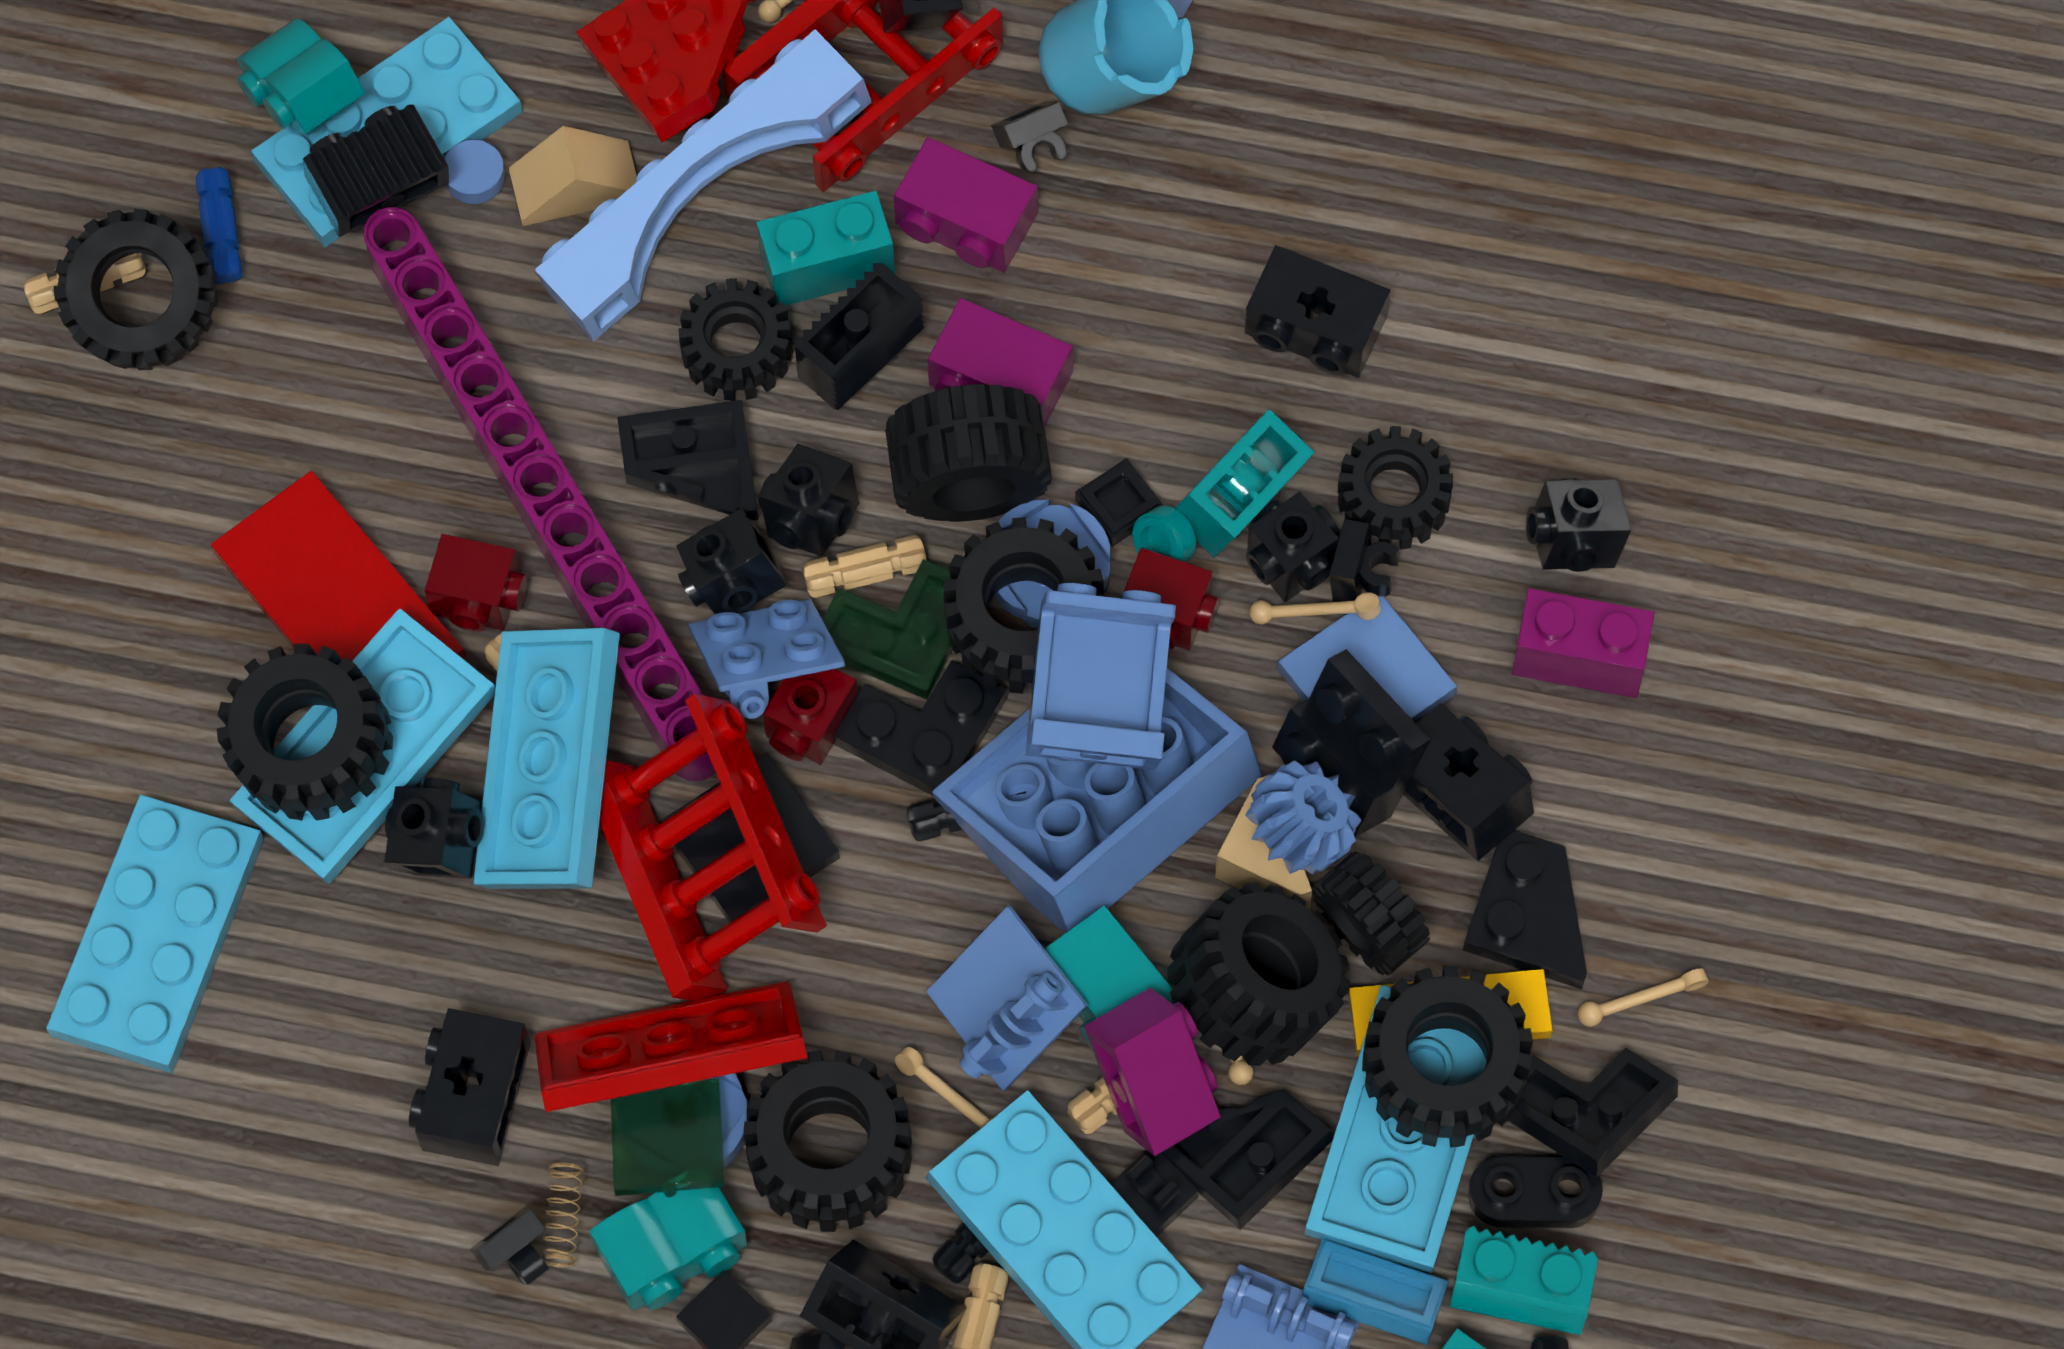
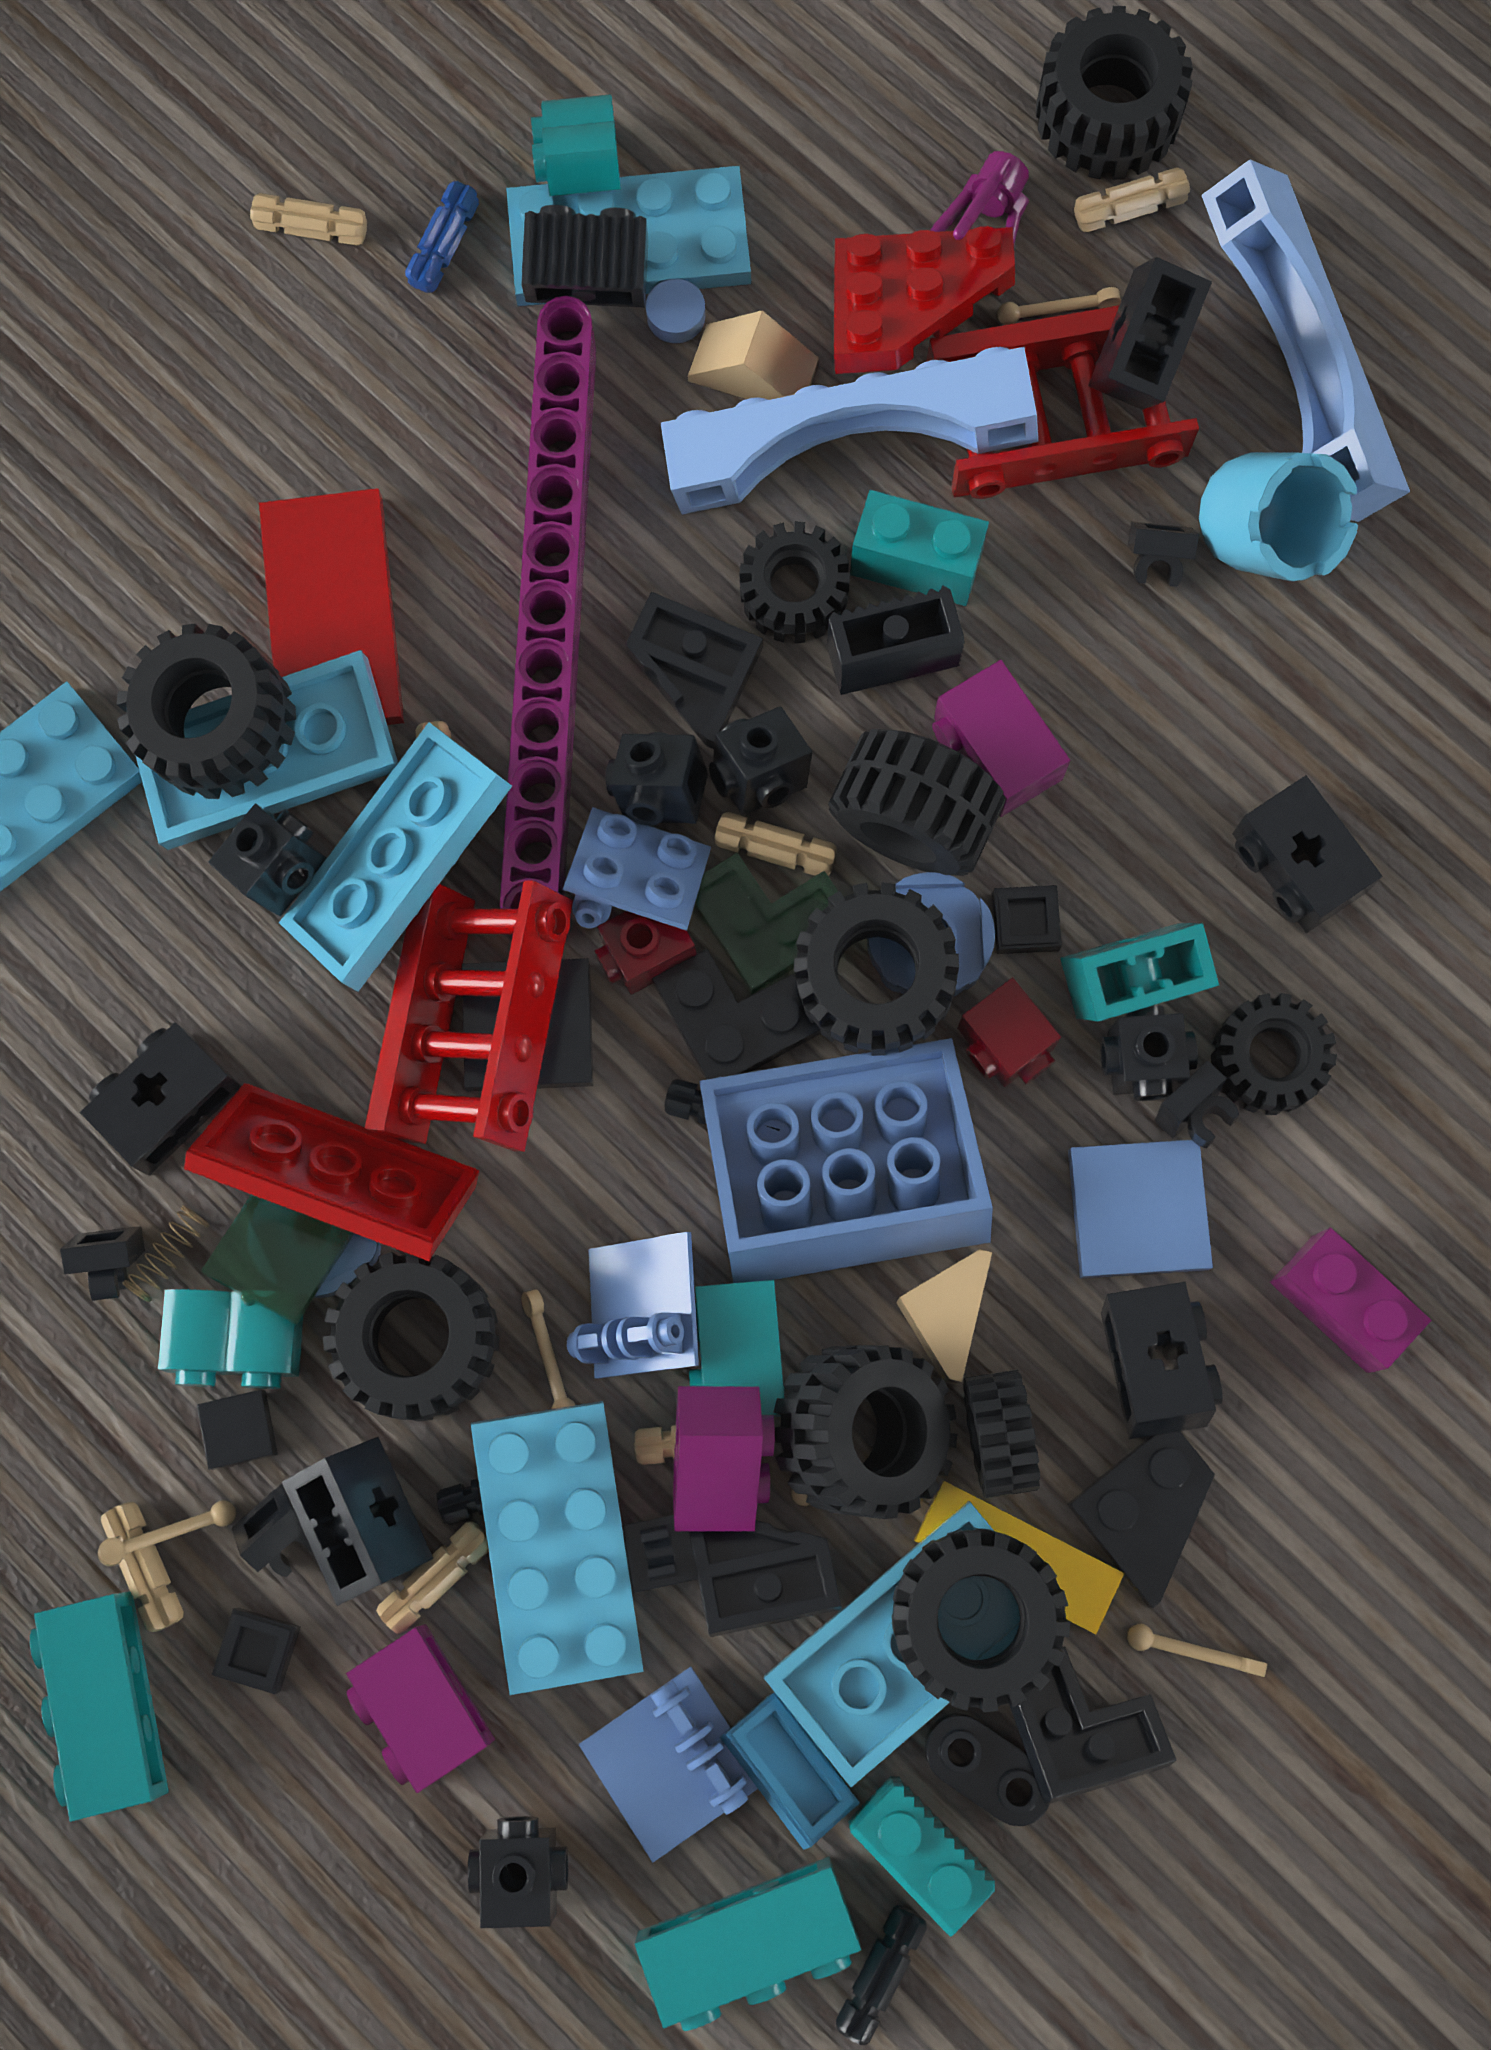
camera: 35 degrees right, 10 degrees up
(97, 251) = (283, 237): black tyre -> none
(474, 583) = (443, 665): dark red brick -> none
(965, 205) = (1061, 579): magenta brick -> none
(1100, 677) = (890, 1084): medium blue panel -> none
(1165, 532) = (1043, 976): teal tile -> none
(1303, 817) = (992, 1316): medium blue gear -> none
(1355, 734) = (1081, 1271): black plate -> none
(1365, 605) = (1178, 1147): tan hinge -> none
(1578, 524) = (1415, 1191): black brick -> none

